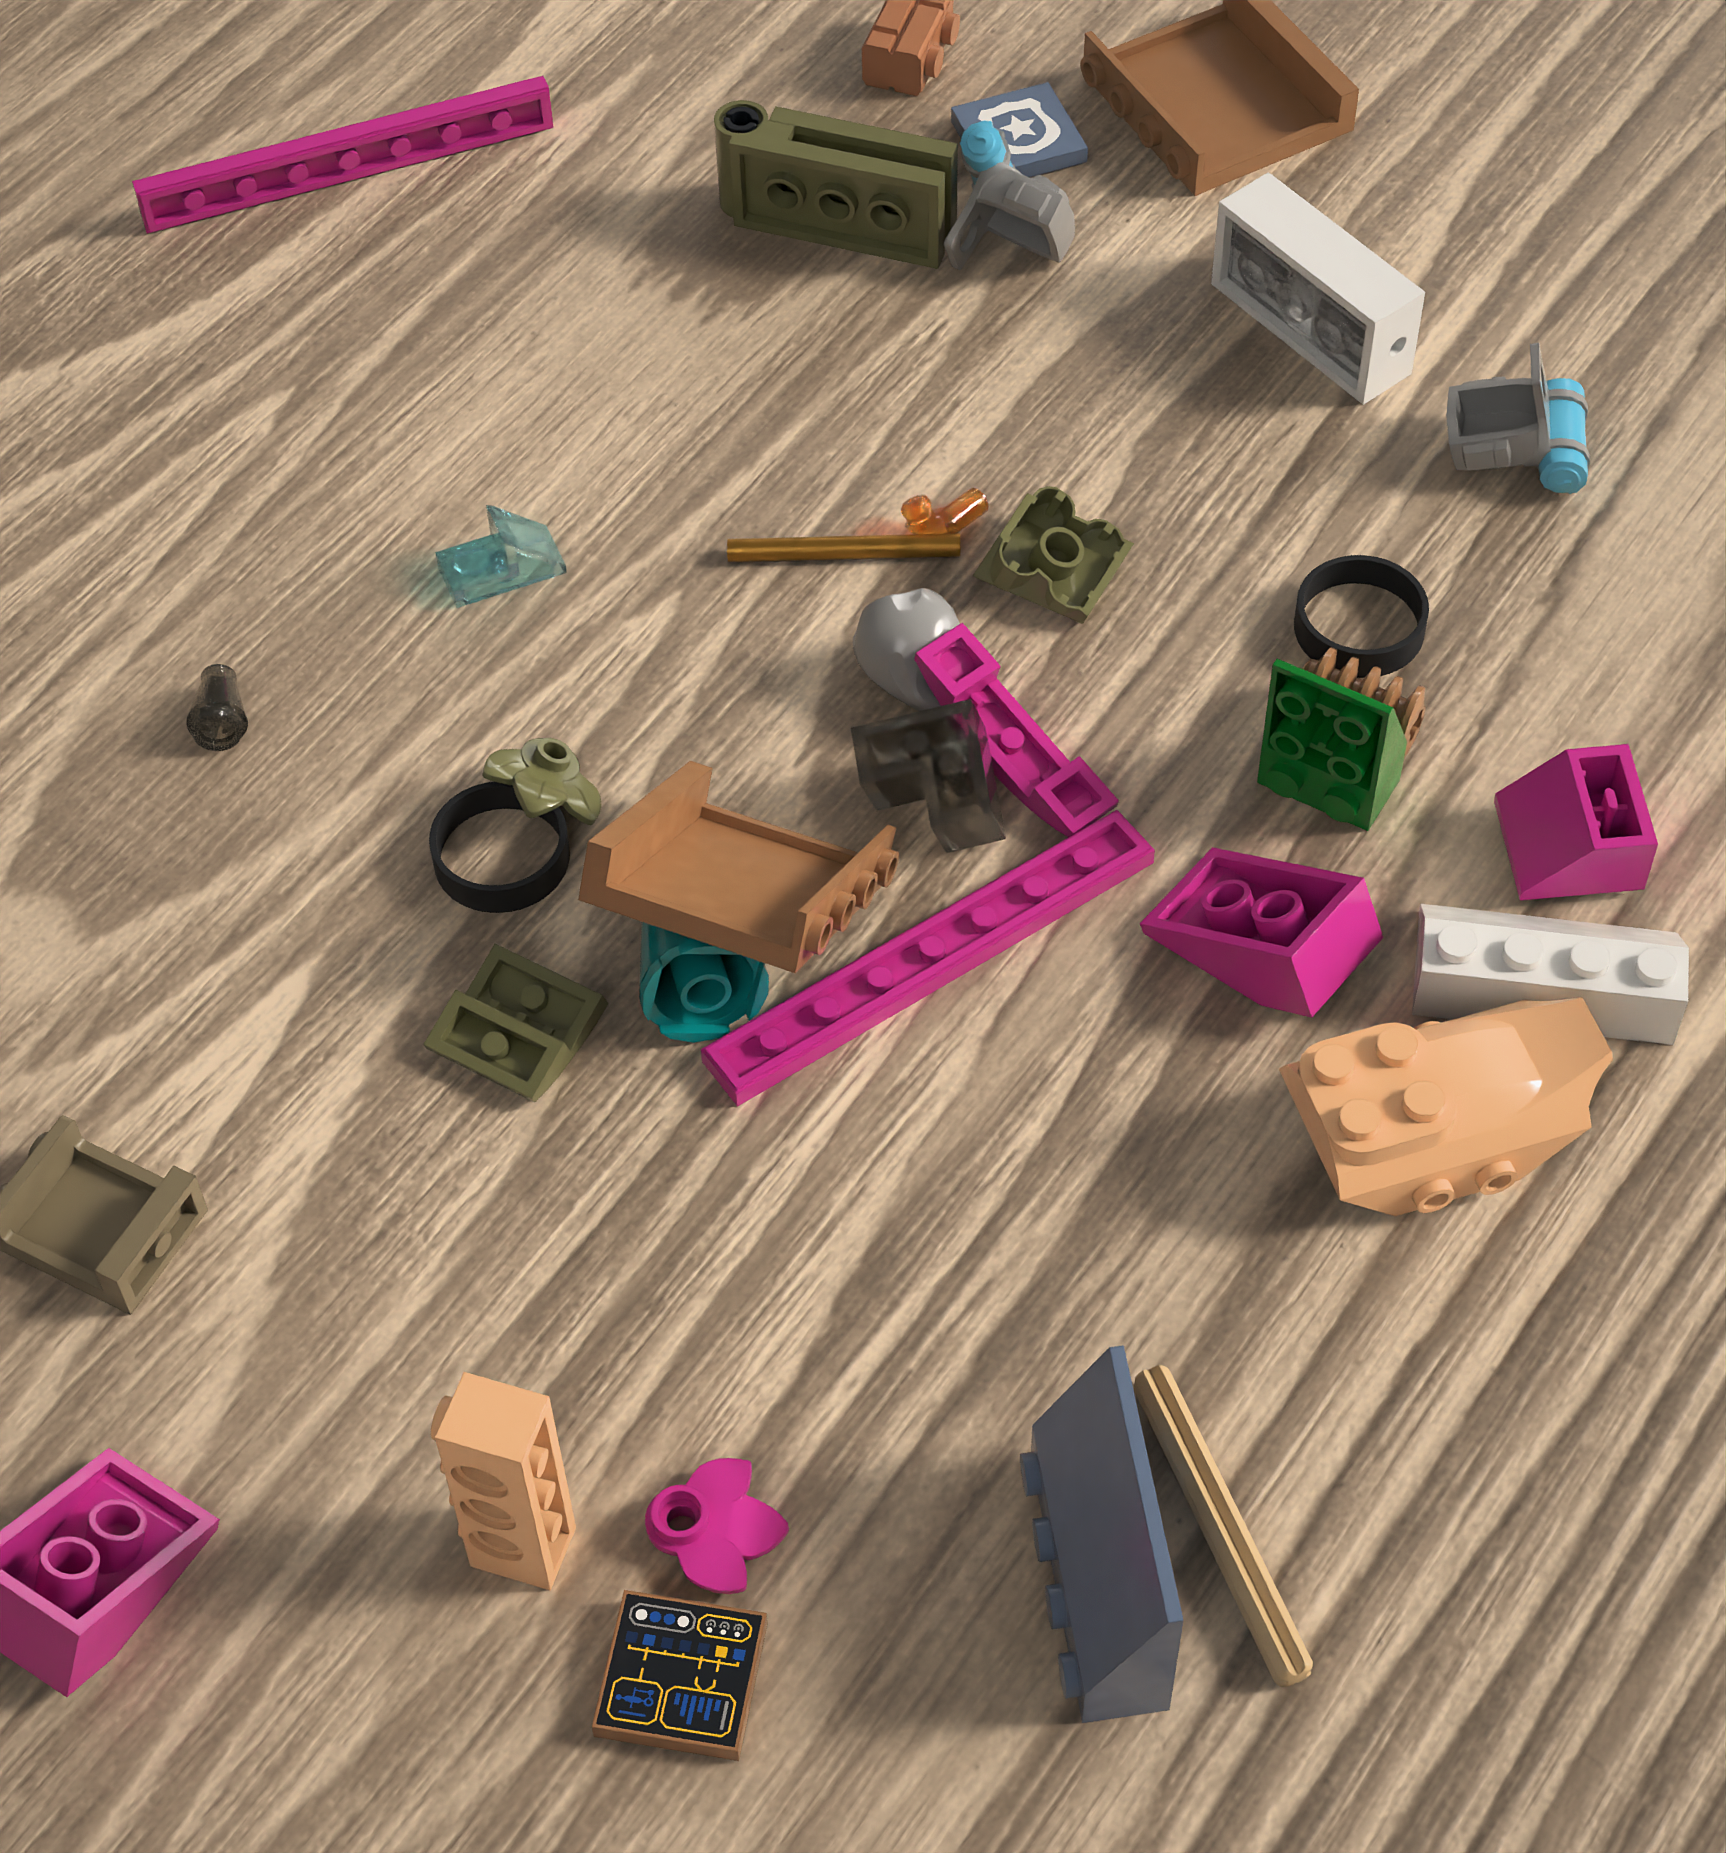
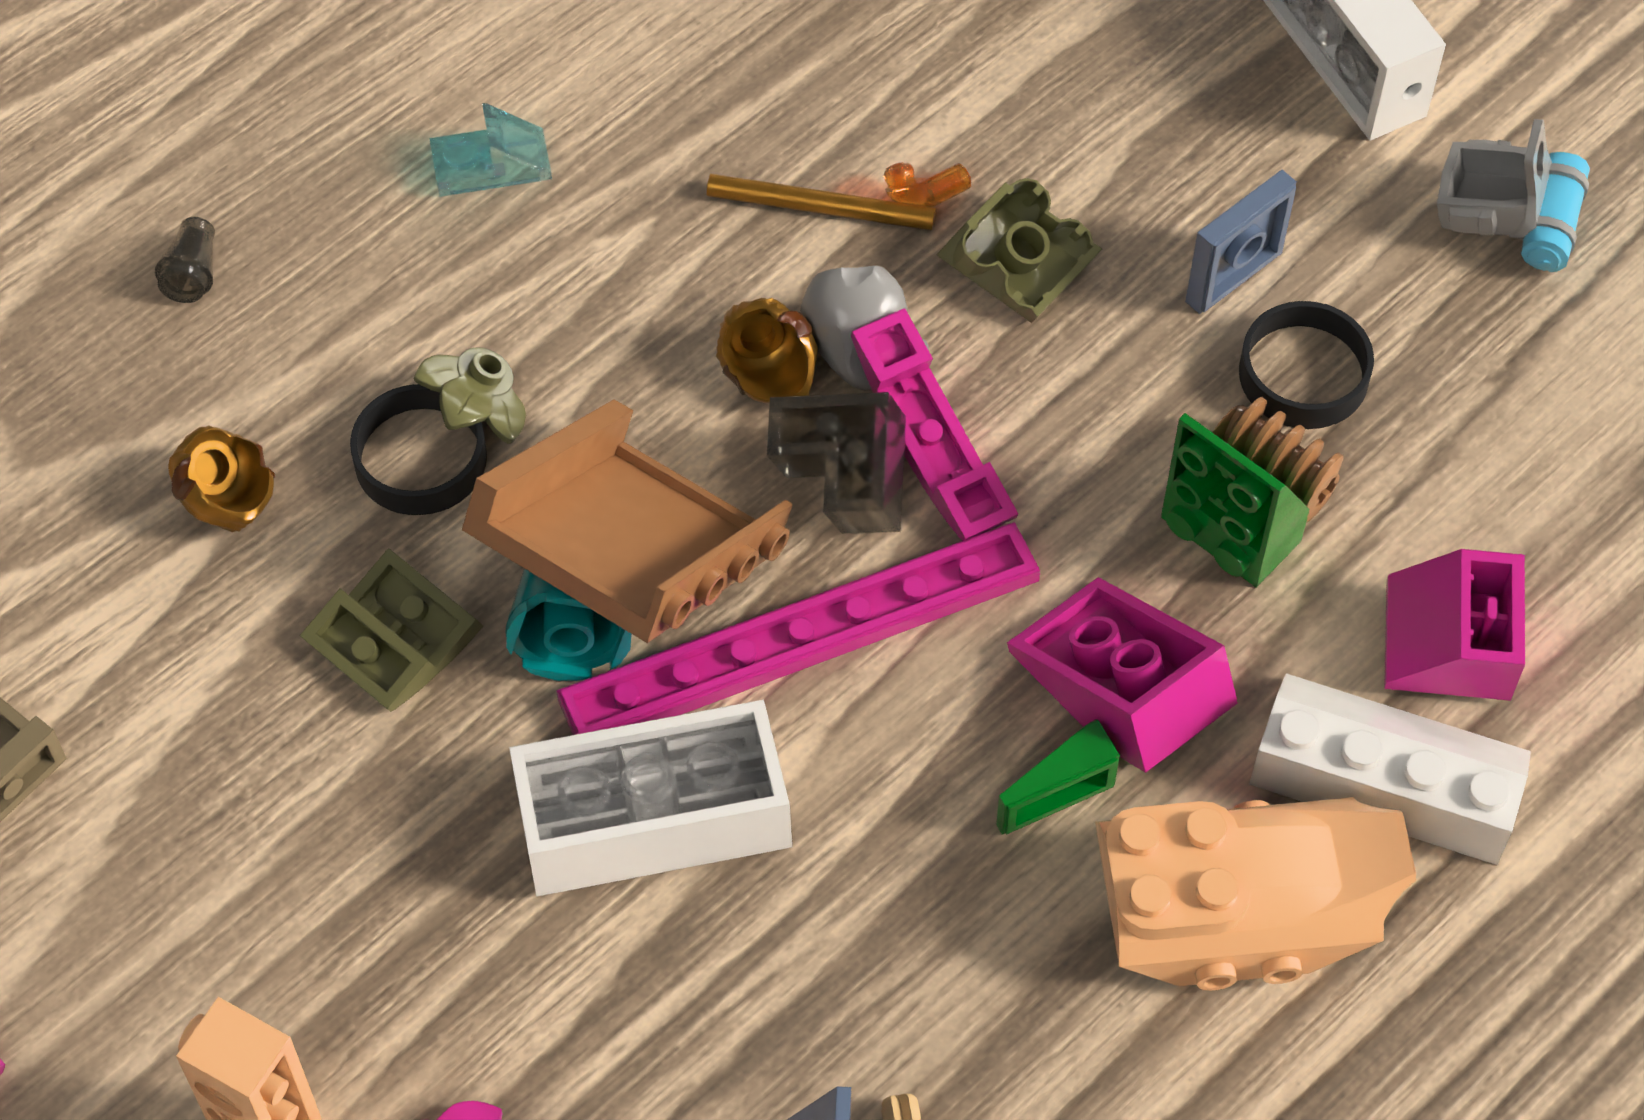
camera: 10 degrees right, 5 degrees up
(306, 906) = (221, 478): none -> pearl gold hair
(826, 1130) = (651, 797): none -> brick
(830, 689) = (767, 350): none -> pearl gold hair
(1234, 1037) = (1067, 776): none -> green slope
(1271, 510) = (1240, 242): none -> sand blue tile

